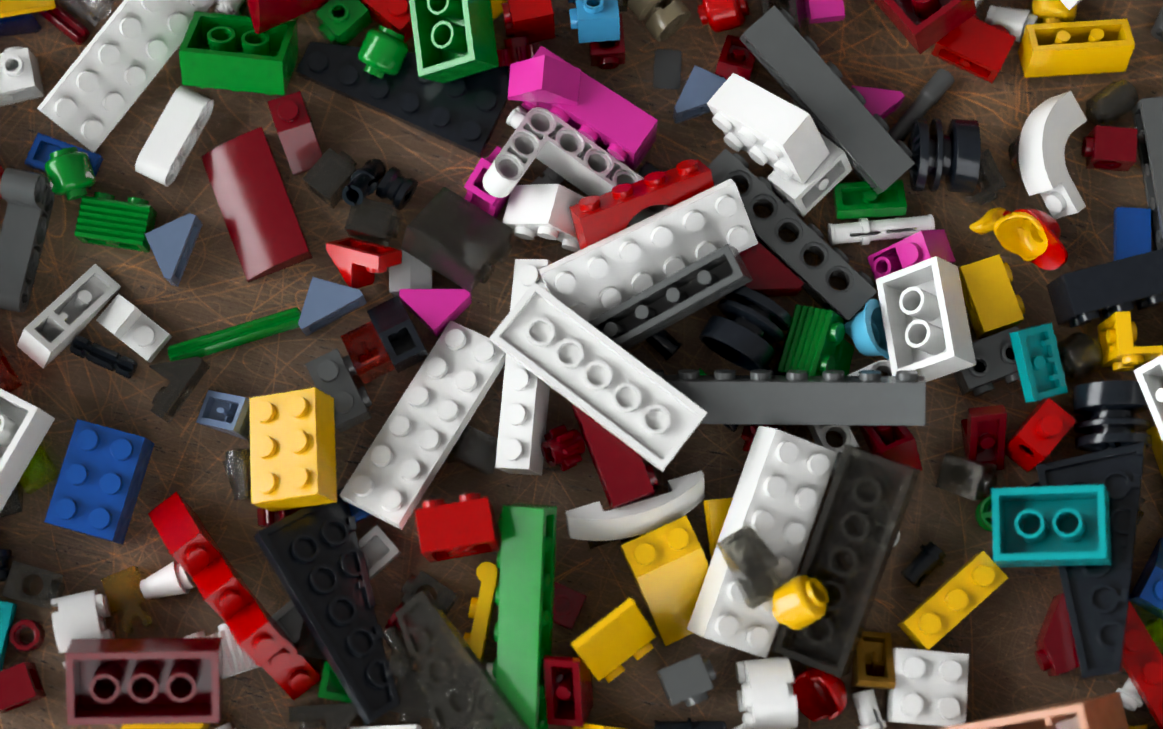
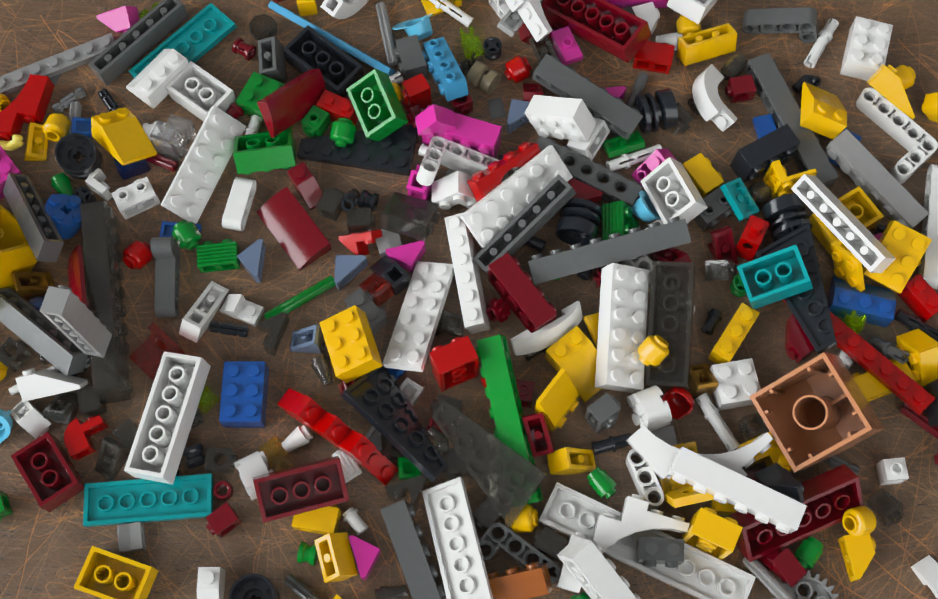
camera: 15 degrees left, 10 degrees down
(481, 608) = (477, 406): yellow plate -> none
(598, 376) = (508, 260): white plate -> none
(750, 565) = (620, 336): clear smoke slope -> none
(1027, 234) = (712, 140): yellow hair -> none

